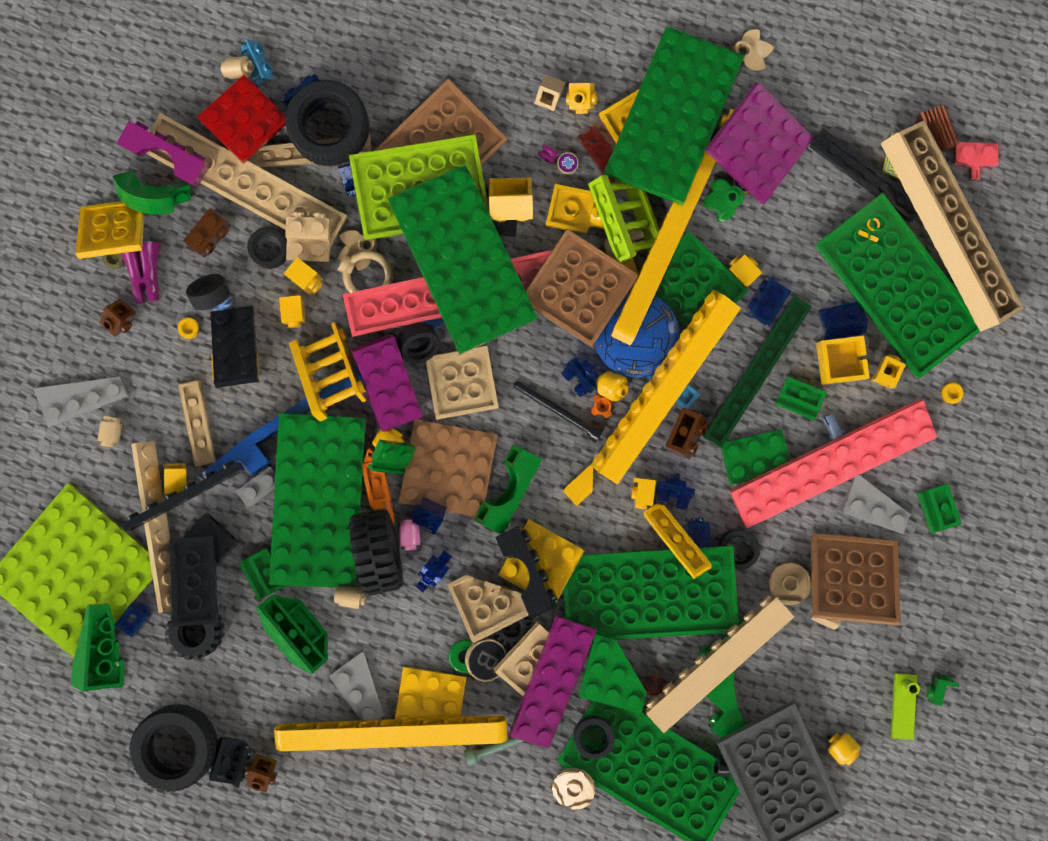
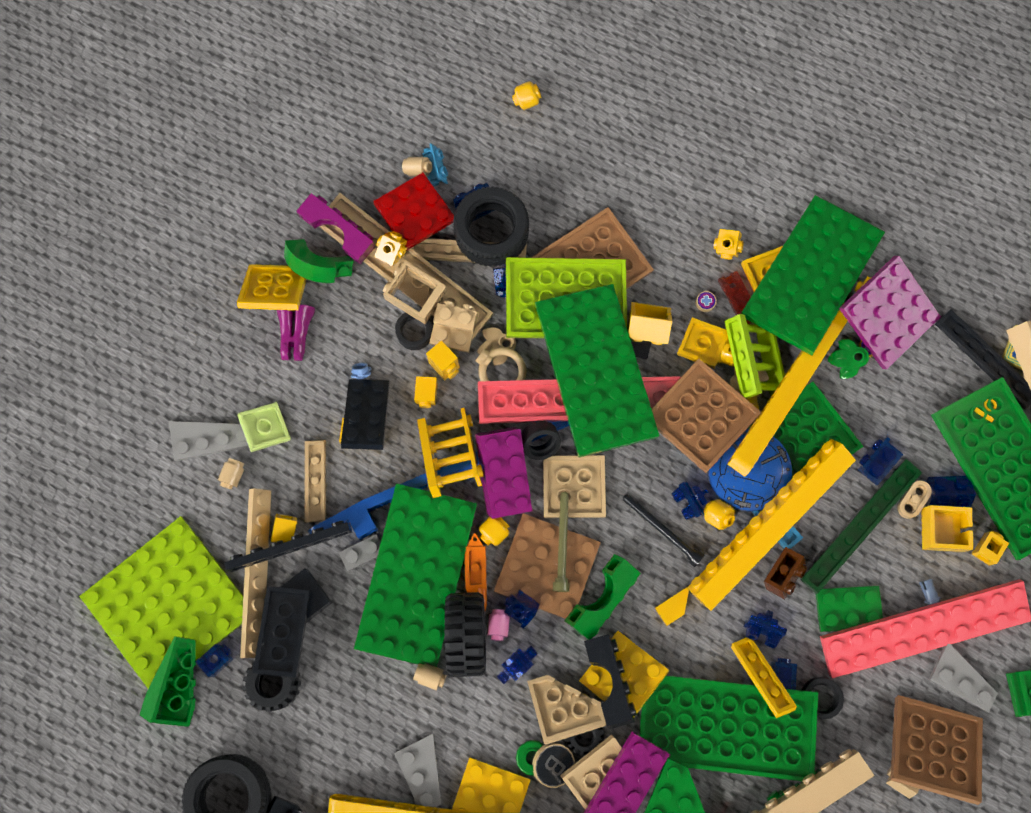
camera: 10 degrees right, 10 degrees down
(113, 261) = (268, 317): olive tile -> none
(117, 317) = (261, 369): reddish brown brick -> none
(132, 377) = (263, 427): none -> yellowish green plate
(188, 328) = (325, 391): yellow tile -> none
(207, 233) = (360, 307): reddish brown brick -> none
(207, 292) = (350, 359): black tyre -> none
(225, 165) = (391, 247): none -> yellow brick
(257, 573) = (344, 635): green plate -> none
(279, 220) = (430, 305): none -> tan window
(294, 632) = (369, 701): green wedge -> none
(391, 457) = (495, 544): green plate -> none
(464, 483) = (561, 582): none -> olive piece
(548, 154) = (689, 290): magenta bush -> none
(550, 92) = (699, 235): tan brick -> none
(598, 400) = (700, 533): orange plate -> none
(643, 493) = (734, 624): yellow brick -> none
(745, 269) = (862, 426): yellow brick -> none
(755, 50) = (893, 229): tan plate -> none
(783, 581) = (862, 737): tan tile -> none
(800, 398) = (900, 559): green plate -> none
(807, 336) = (914, 500): none -> tan plate

